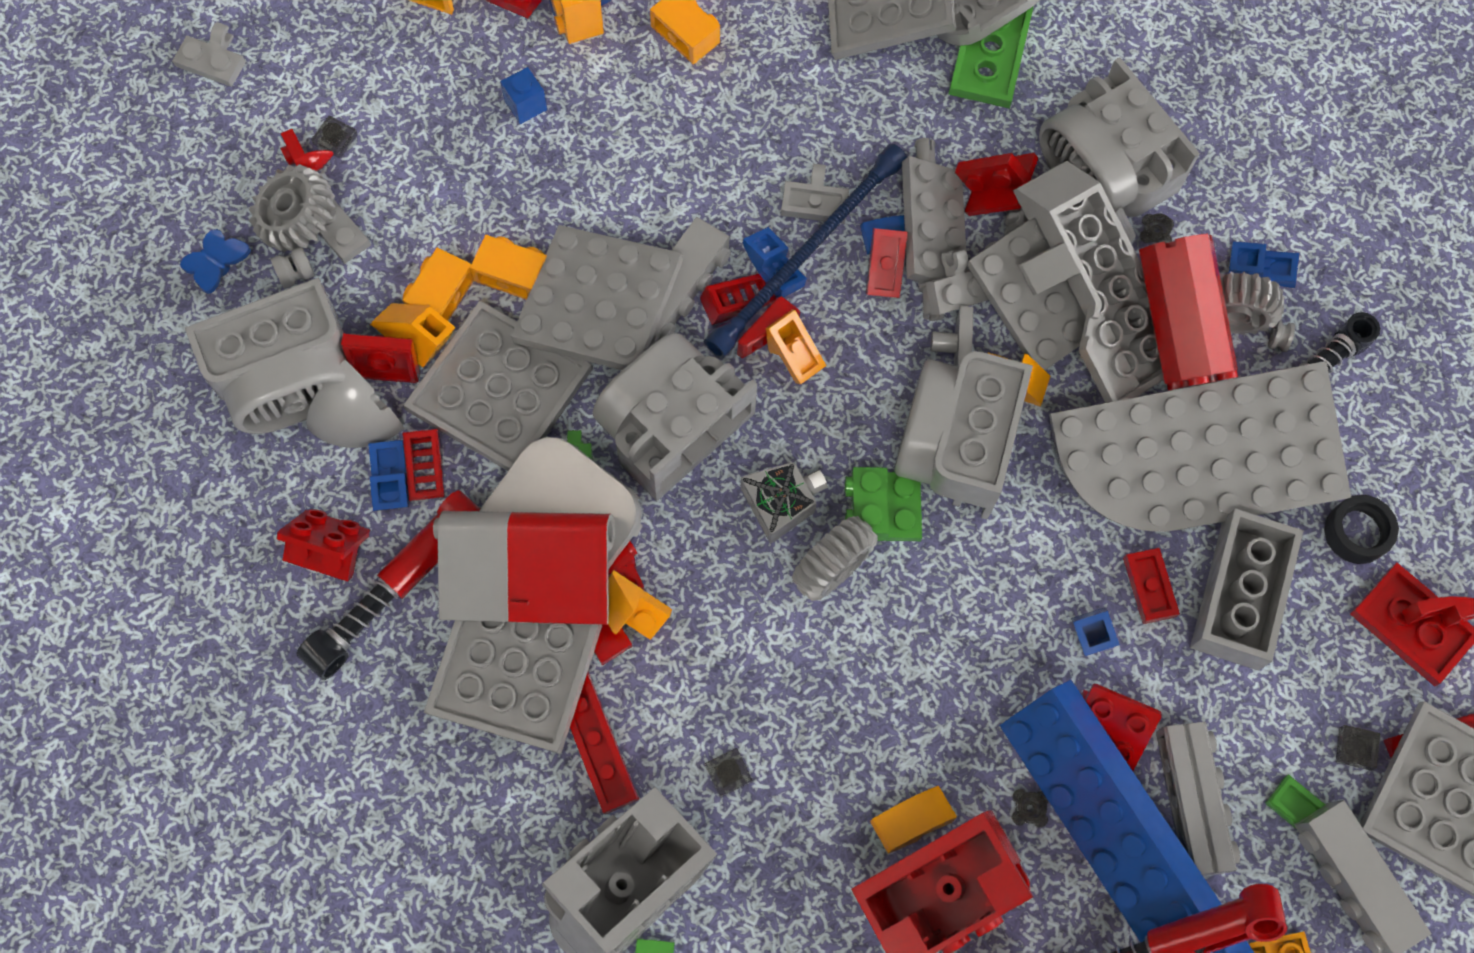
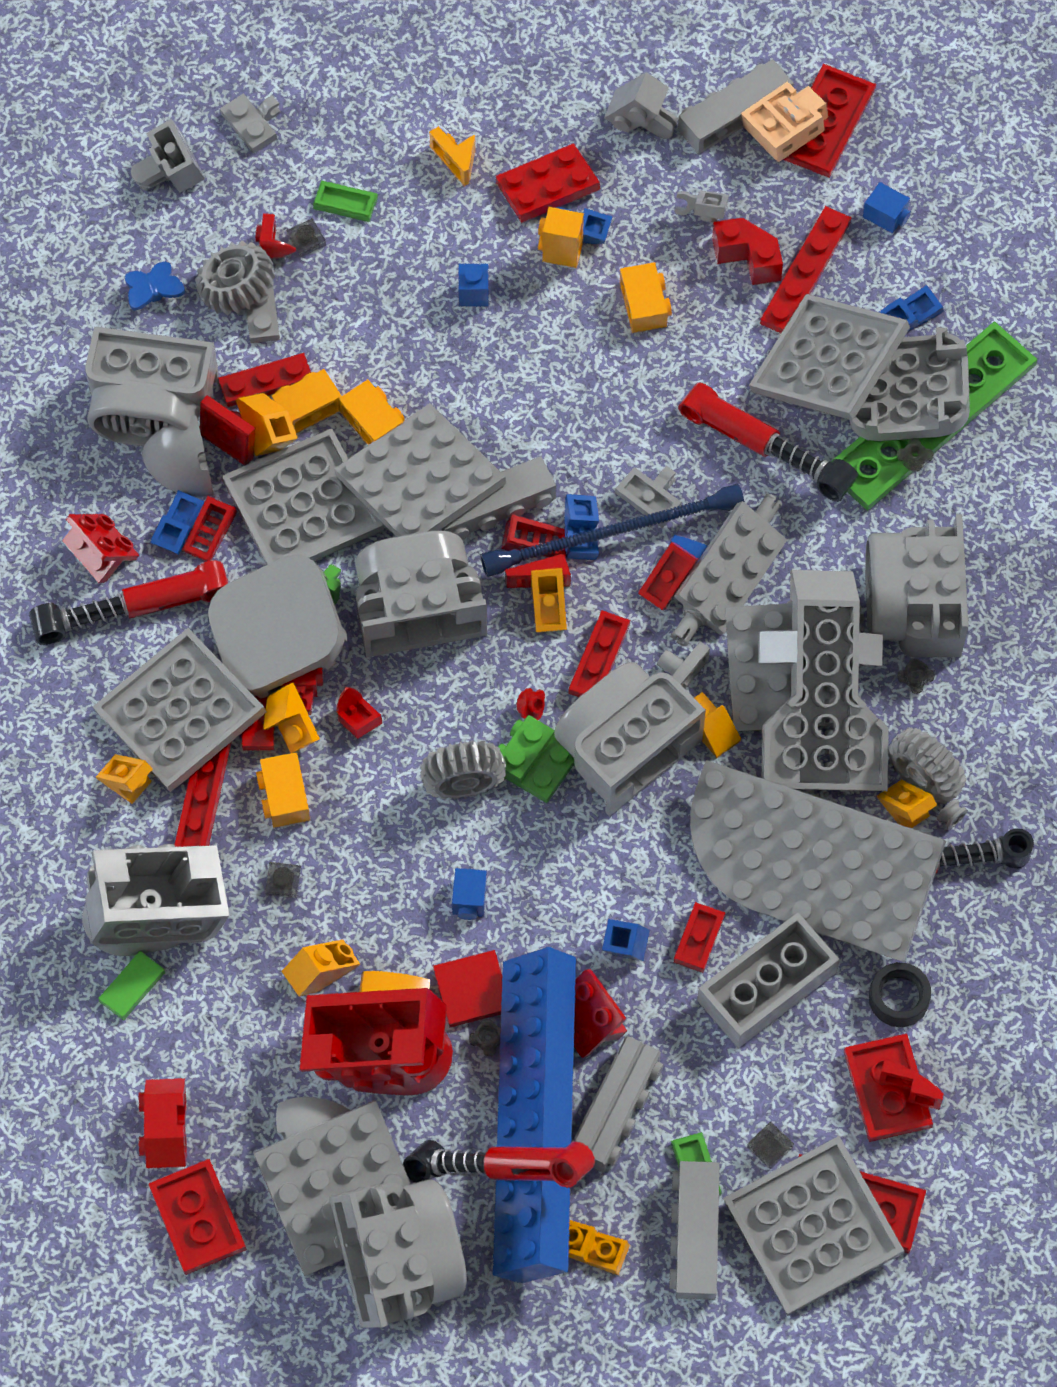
camera: 35 degrees right, 5 degrees down
(152, 132) = (169, 160): none -> light grey brick
(285, 270) = (207, 324): light grey wheel -> none
(349, 84) = (345, 201): none -> bright green tile
(381, 290) = (263, 378): none -> red plate
(502, 763) = (126, 776): none -> light orange slope
(524, 566) = (228, 640): door -> none
(670, 682) = (284, 790): none -> light orange brick
(690, 562) = (357, 713): none -> red plate
(782, 497) = (460, 707): torso -> none
(806, 92) = (706, 407): none -> piece
(827, 841) = (319, 966): none -> light orange slope
(844, 455) = (531, 703): none -> red plate
(874, 374) = (600, 652): none -> red plate
(917, 675) = (469, 893): none -> blue brick
(955, 289) = (705, 626): light grey plate -> none
(980, 767) = (470, 988): none -> red tile
(994, 180) = (803, 554): red bracket -> none
(1022, 42) = (914, 463): none -> clear smoke plate
(1188, 311) = (865, 741): red brick -> none
(1252, 346) = (907, 803): none -> light orange slope
(1254, 259) = (982, 752): blue slope -> none

